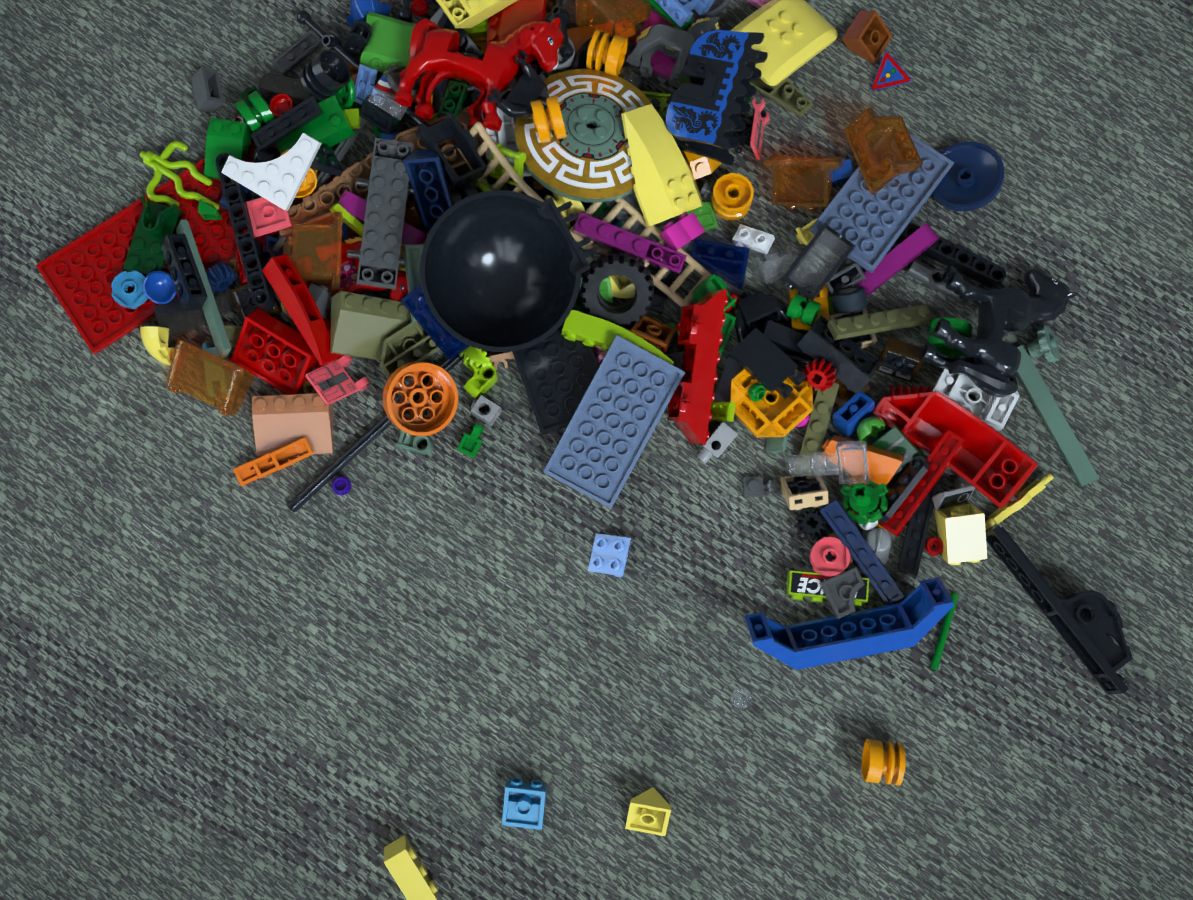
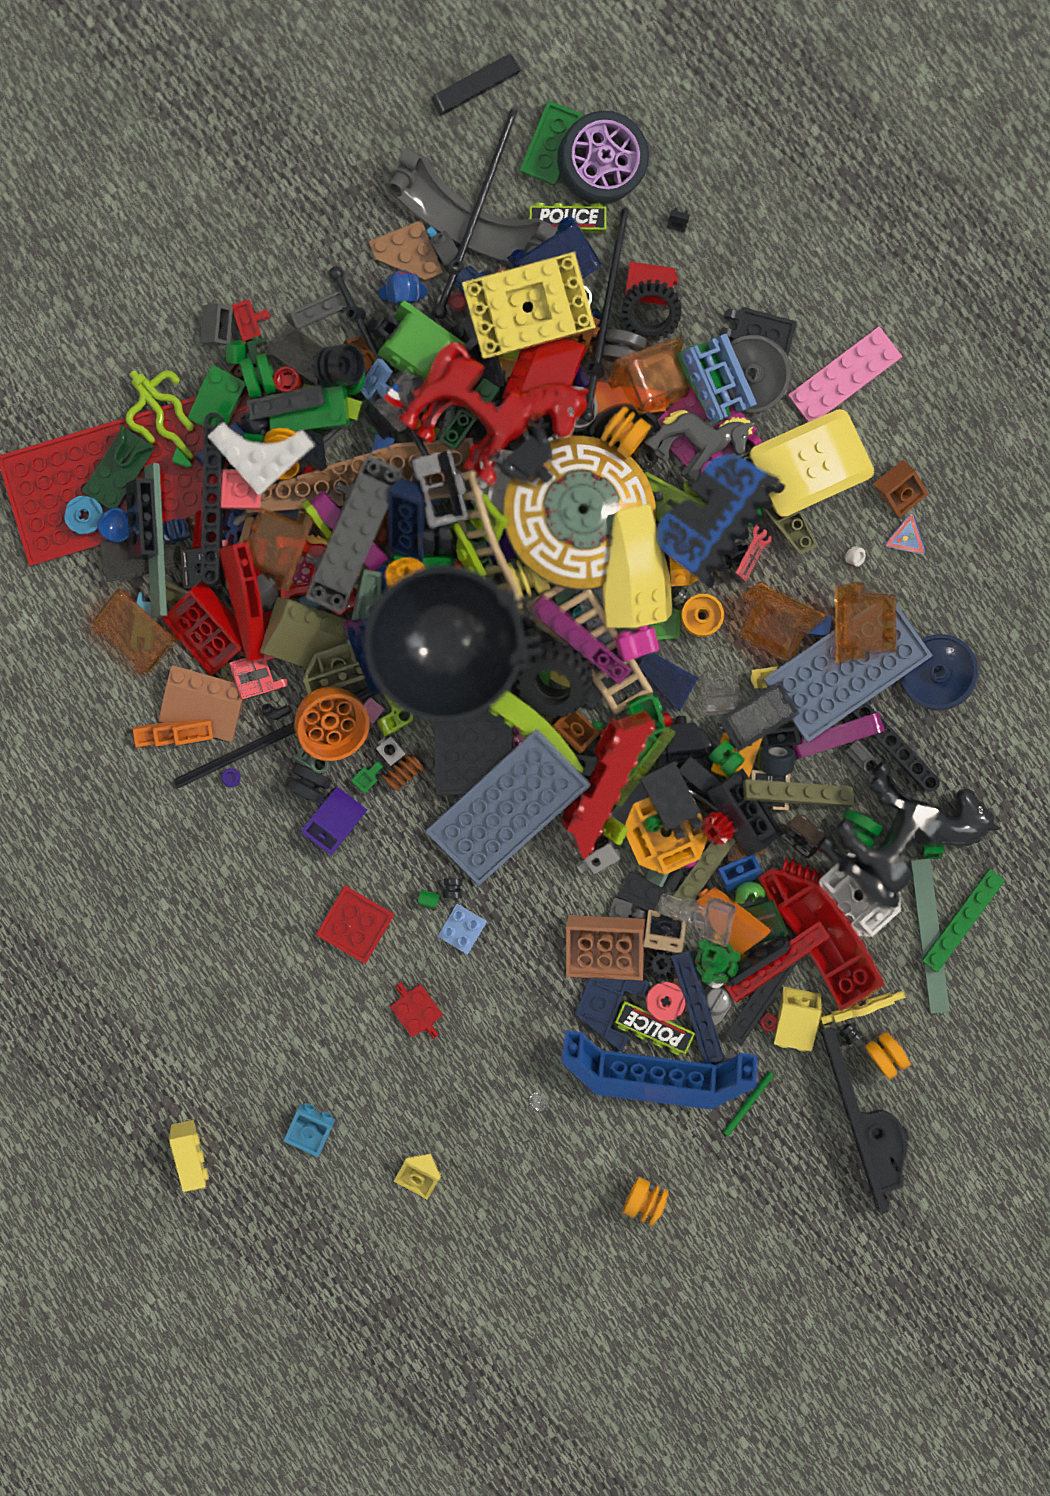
camera: 15 degrees right, 10 degrees up
(156, 343) = (95, 580): light yellow brick -> none
(229, 107) = (235, 351): none -> green brick
(236, 79) = (248, 320): none -> red plate
(365, 413) = (275, 713): none -> black arm
(415, 463) = (306, 785): none -> black wheel
(452, 493) = (334, 821): none -> dark purple slope
(459, 378) = (373, 709): none -> bright pink tile
(503, 425) = (403, 772): none -> dark orange piece
(504, 585) = (355, 924): none -> red plate
(548, 119) = (540, 497): light orange wheel -> none
(567, 538) = (428, 899): none -> green brick
(587, 518) = (452, 888): none -> black wheel
(591, 649) = (416, 1010): none -> red plate
(729, 342) = (645, 764): none -> clear neon green axle
(753, 239) = (706, 666): white plate -> none
(753, 526) = (605, 947): none -> nougat slope
(767, 464) = (641, 892): none -> black plate
(767, 582) = (601, 1003): none -> dark blue wing
(793, 441) = (674, 879): none -> black brick
(841, 591) = (664, 1036): dark grey tile -> none
(849, 105) = (855, 556): none -> white tile
(953, 497) = (803, 984): slope -> none
(1016, 530) = (850, 1033): none -> black wheel
(1023, 337) = (933, 853): none -> green tile
(1045, 344) = (950, 867): sand green plant -> none
(1061, 537) = (889, 1054): none -> light orange wheel
(1076, 390) = (963, 920): none -> green plate

